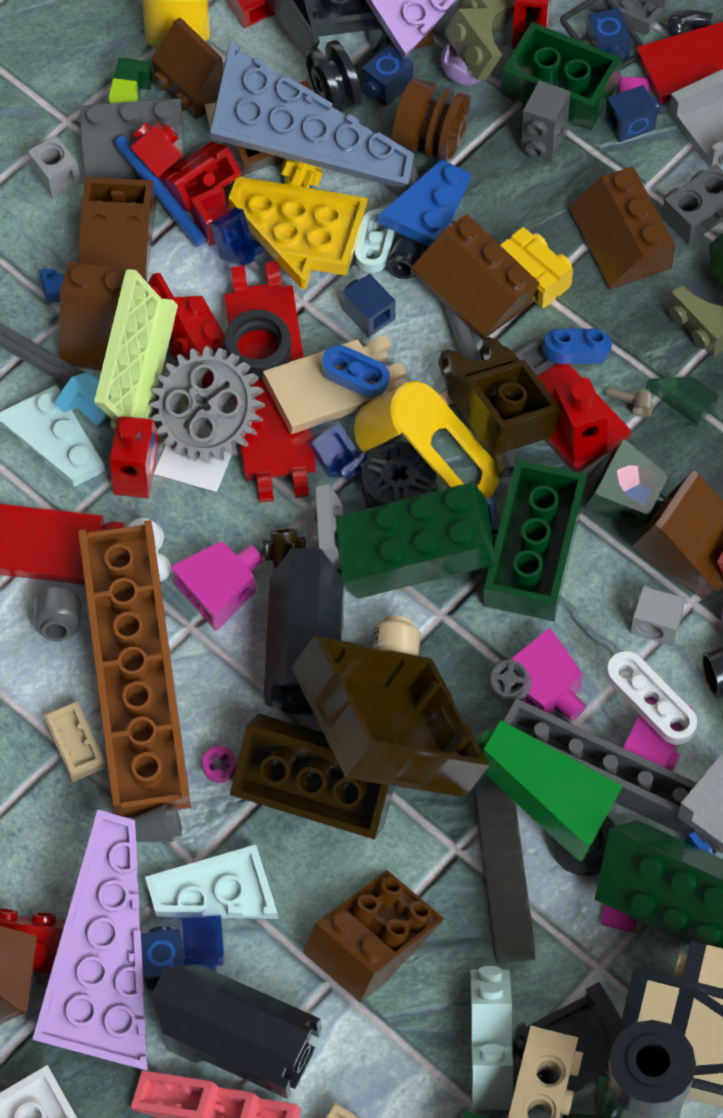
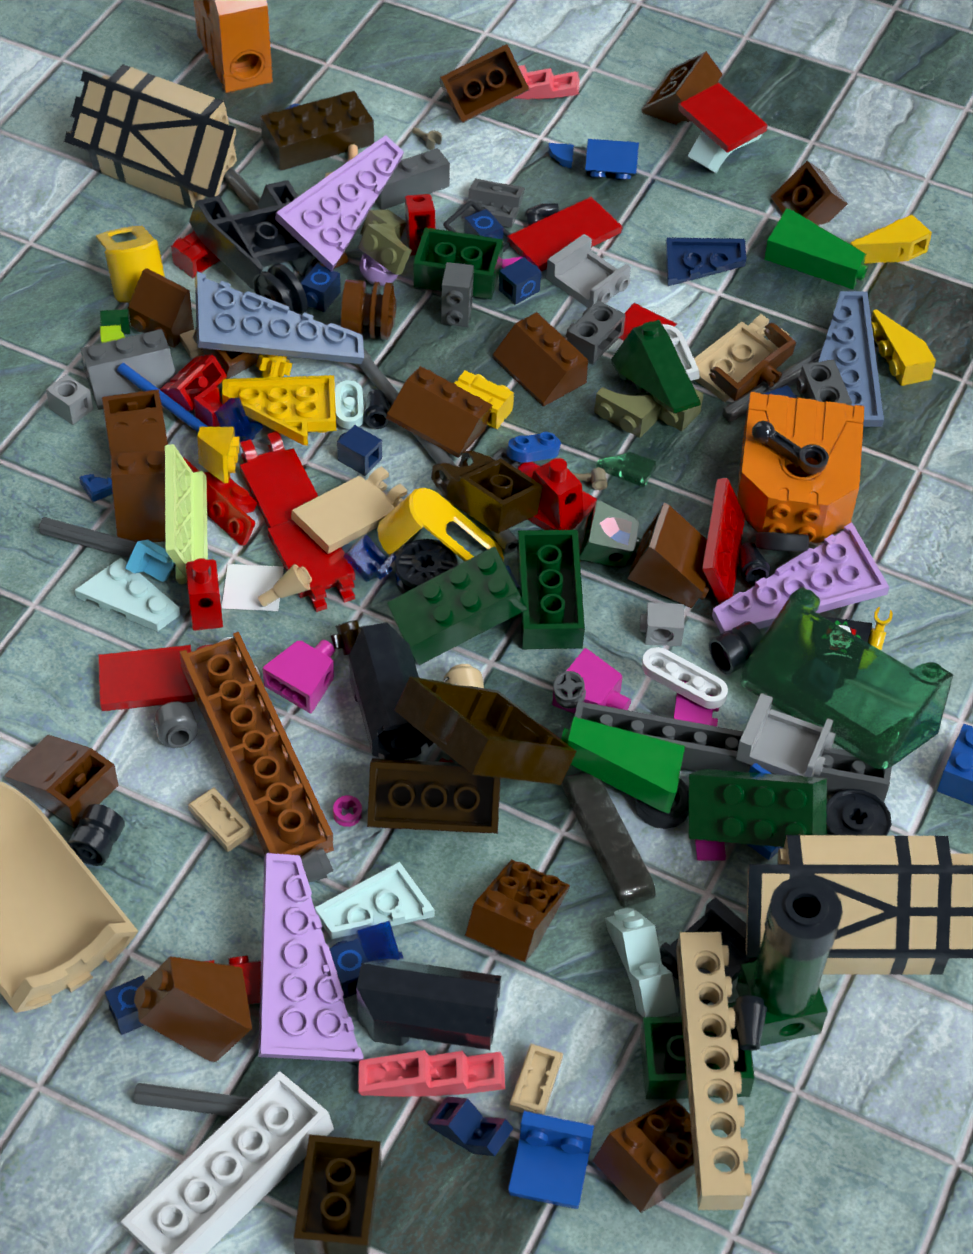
camera: 20 degrees left, 10 degrees down
(156, 146) = (153, 365): red brick -> none
(187, 382) = (231, 530): light grey gear -> none
(201, 273) = (218, 451): none -> yellow slope
(238, 464) = (292, 582): none -> tan cone
(264, 321) = (275, 476): black tyre -> none
(322, 523) = (375, 608): light grey bracket -> none
(356, 371) = (367, 494): blue plate -> none
(428, 204) = (383, 370): blue wing -> none

